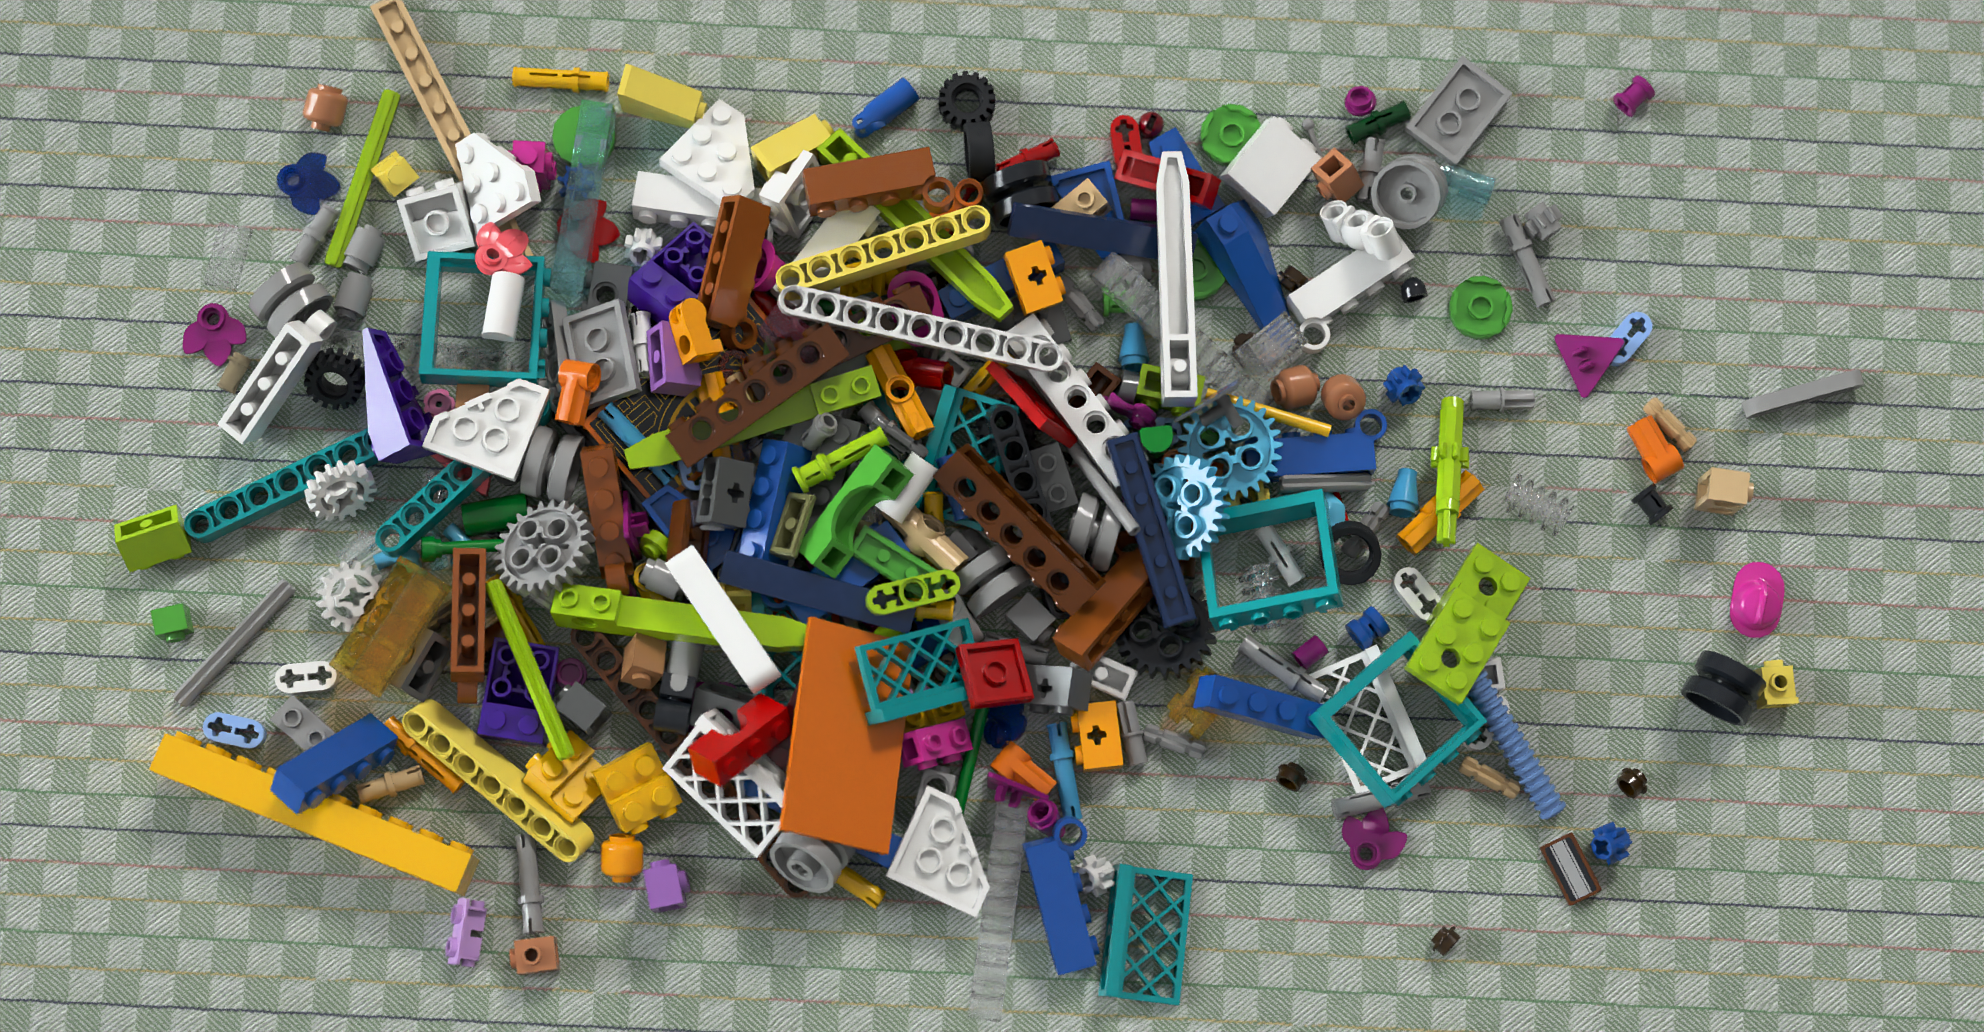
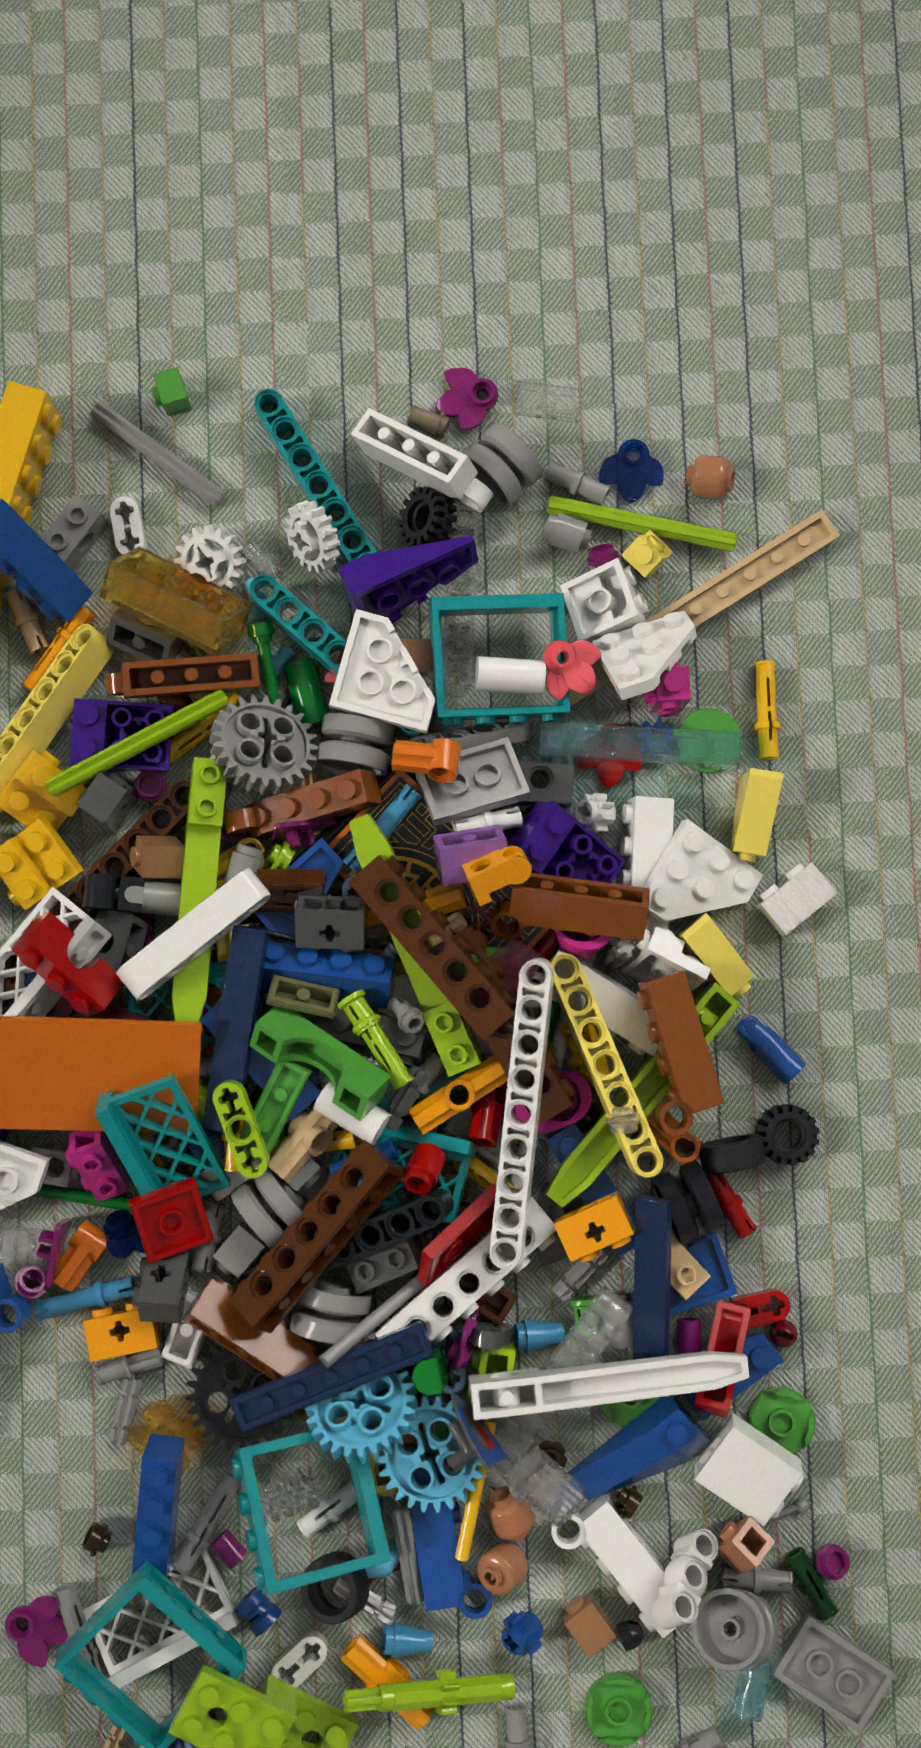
camera: 90 degrees right, 5 degrees up
(152, 538) = (251, 359): lime brick -> none
(235, 723) = (64, 463): light blue beam -> none
(353, 296) = (516, 528): light grey brick -> none
(390, 218) = (601, 555): none -> magenta plate
(435, 396) = (411, 617): bright pink plate -> none
(745, 70) = (796, 898): none -> white brick
(783, 238) = (617, 955): none -> light grey axle
(935, 235) = (623, 1120): none -> clear plate
(964, 427) = (423, 1168): none -> red brick
(1400, 325) = (588, 1624): none -> medium nougat brick

